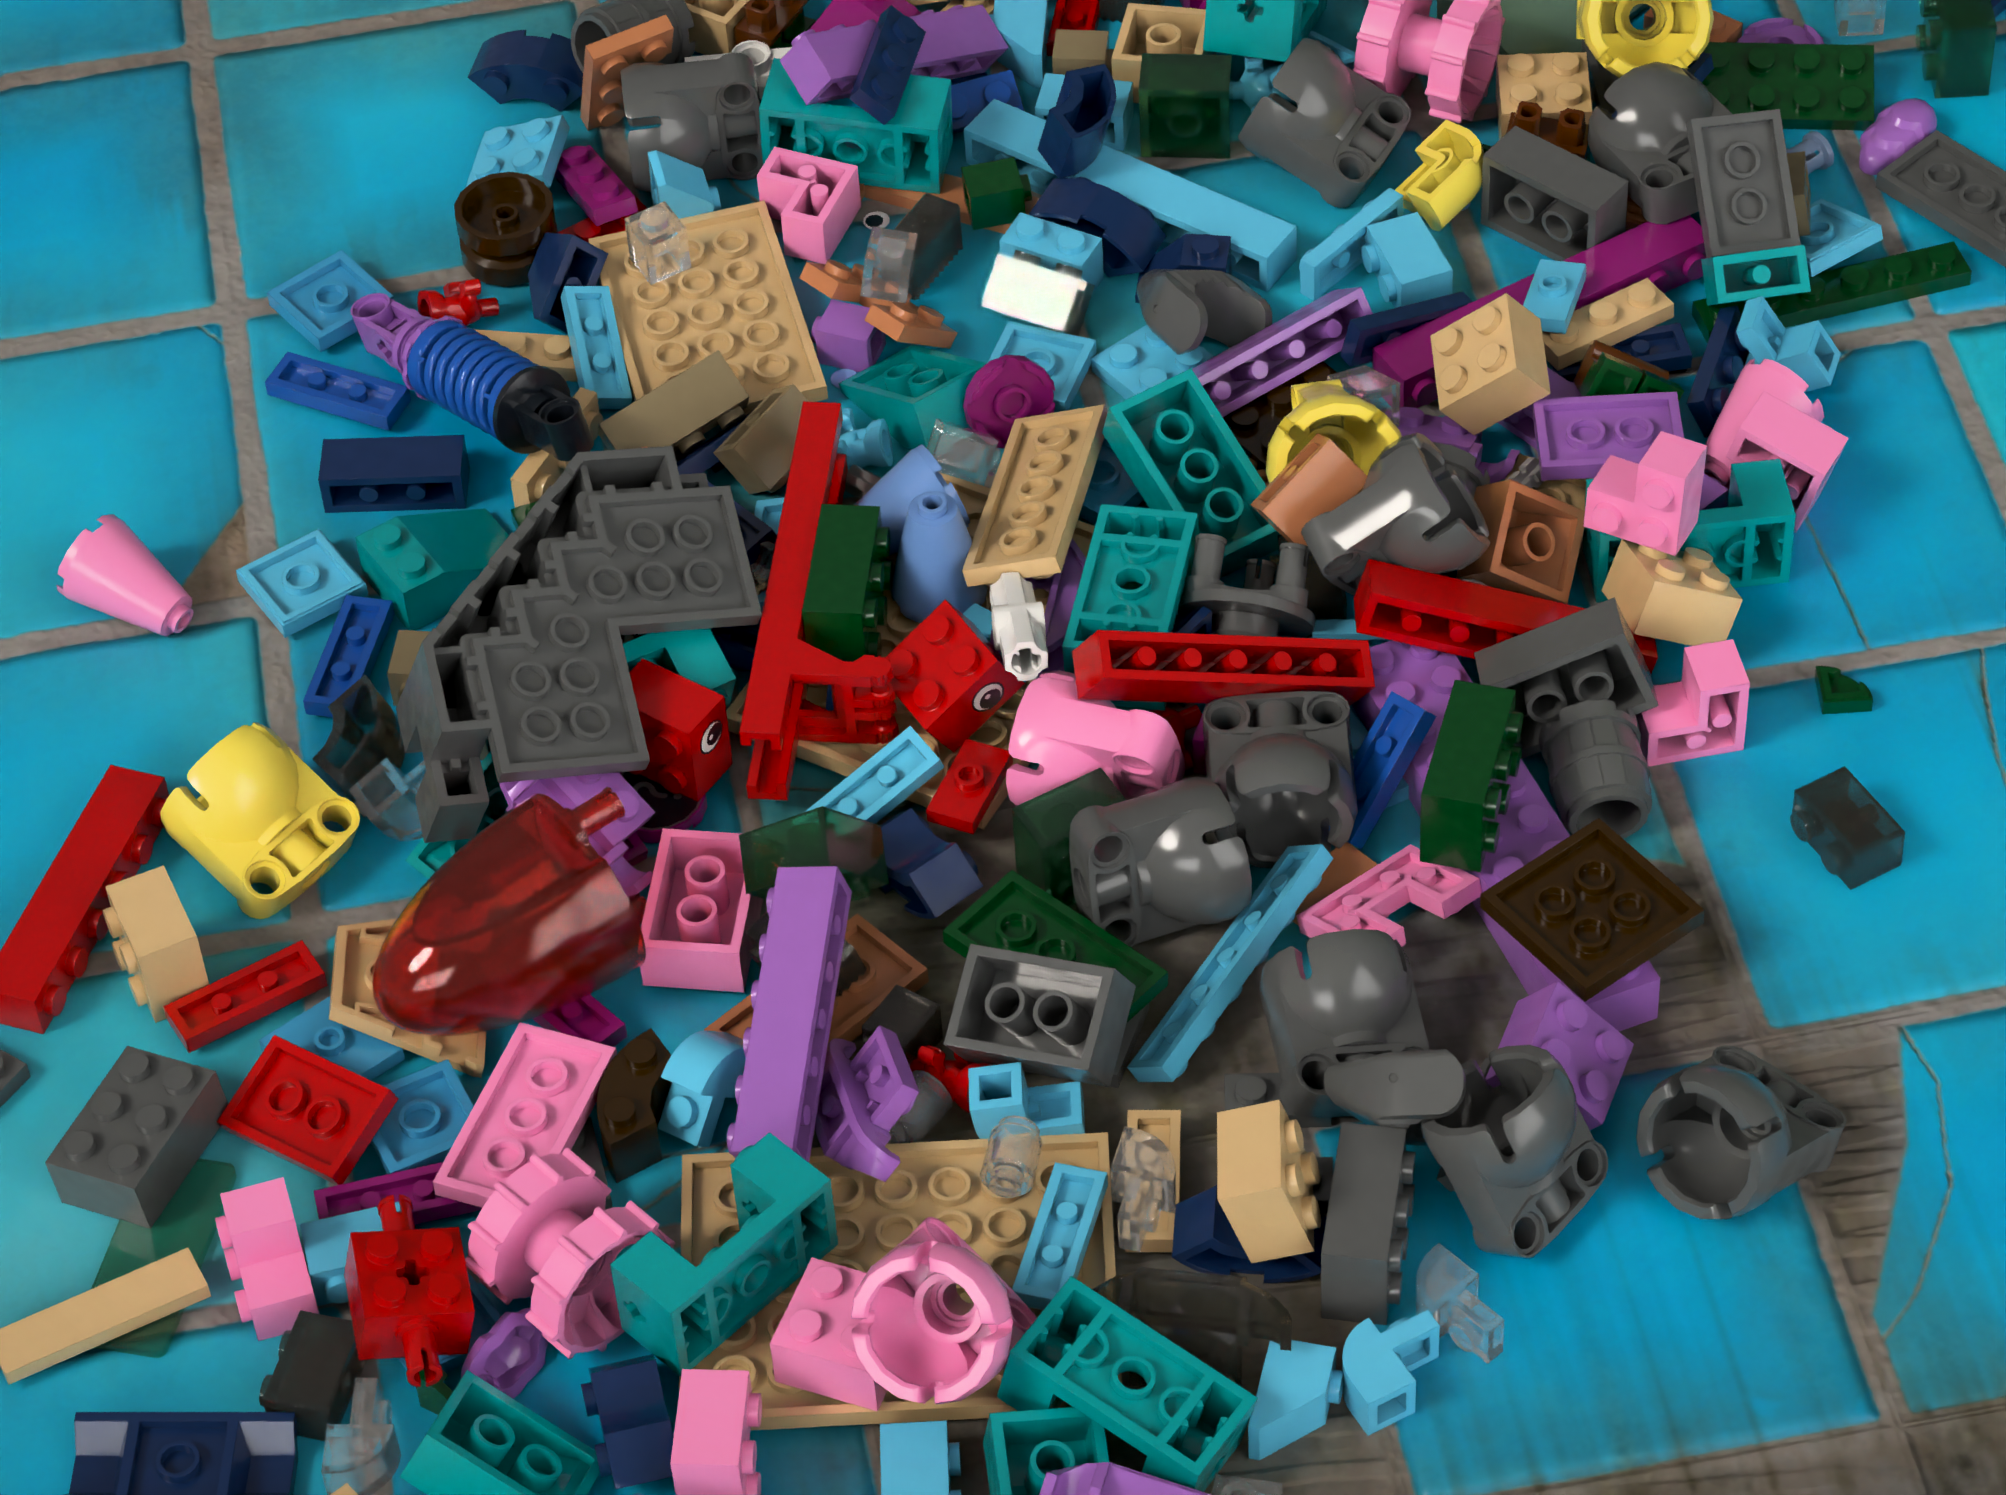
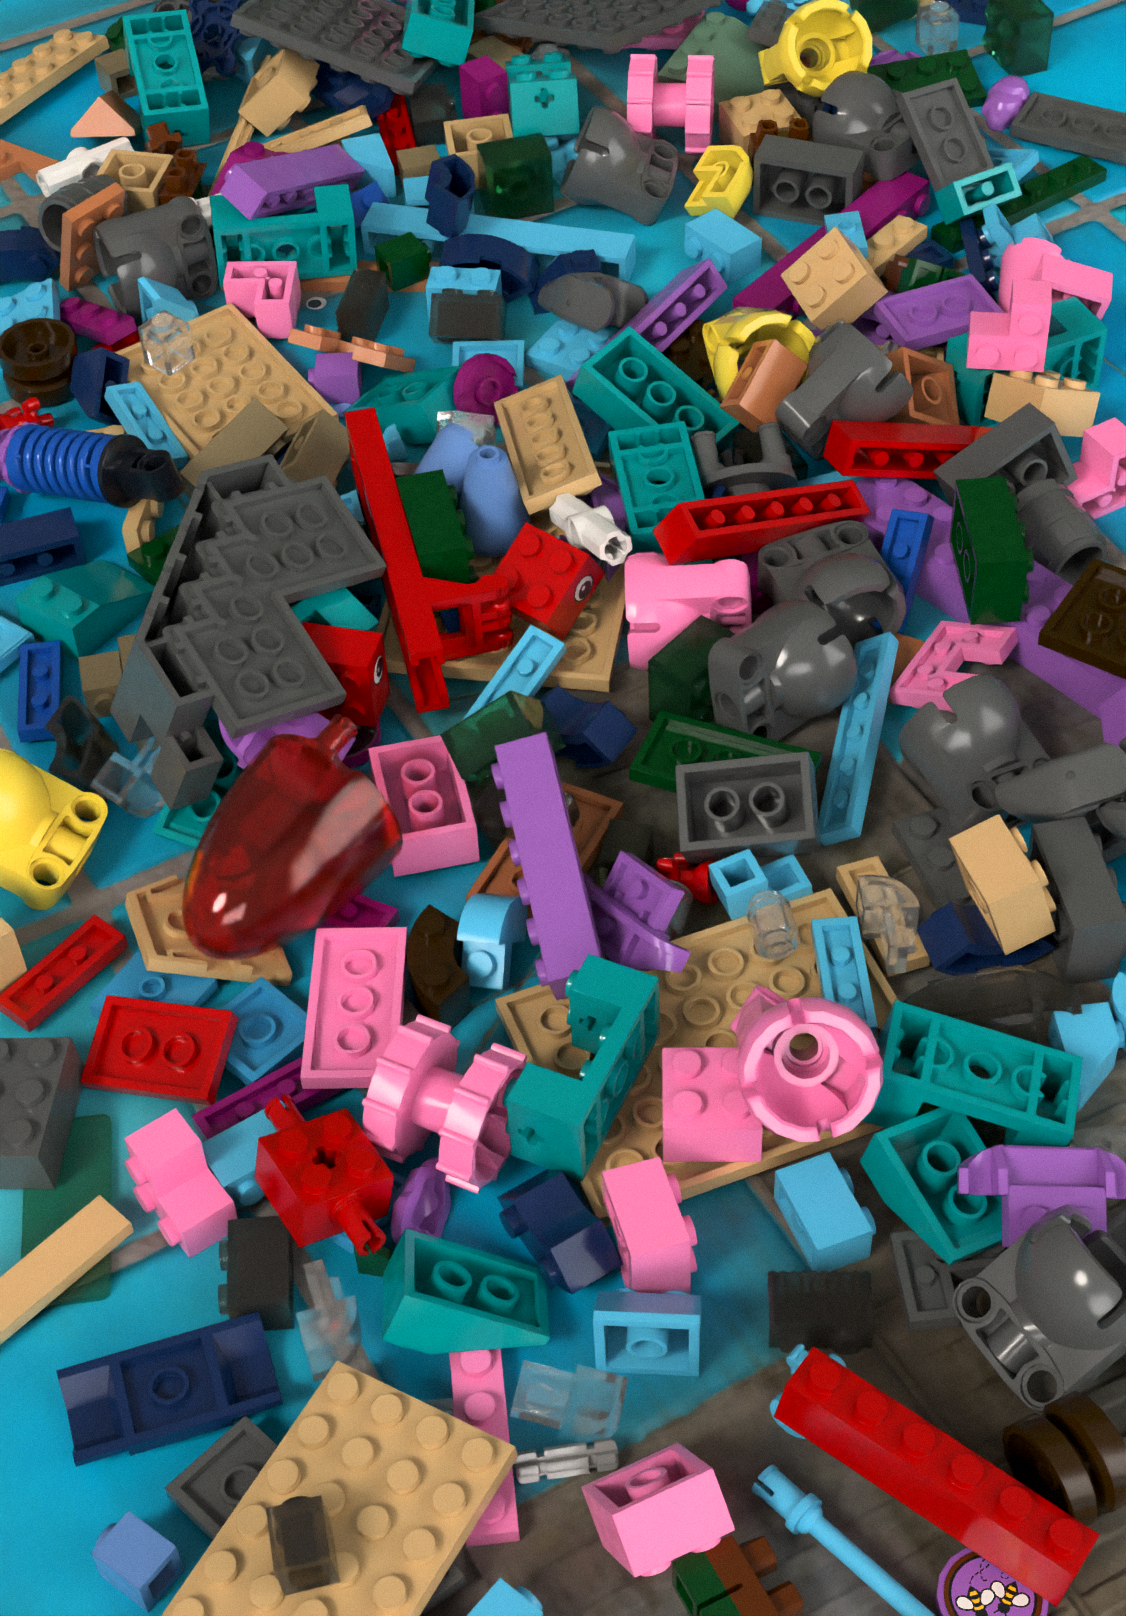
camera: 20 degrees left, 0 degrees up
(887, 65) = (299, 180): dark blue plate -> none
(889, 264) = (355, 316): clear brick -> none
(969, 786) = (590, 660): red plate -> none
(1341, 251) = (670, 247): medium azure plate -> none
(1383, 326) = (732, 283): dark blue plate -> none

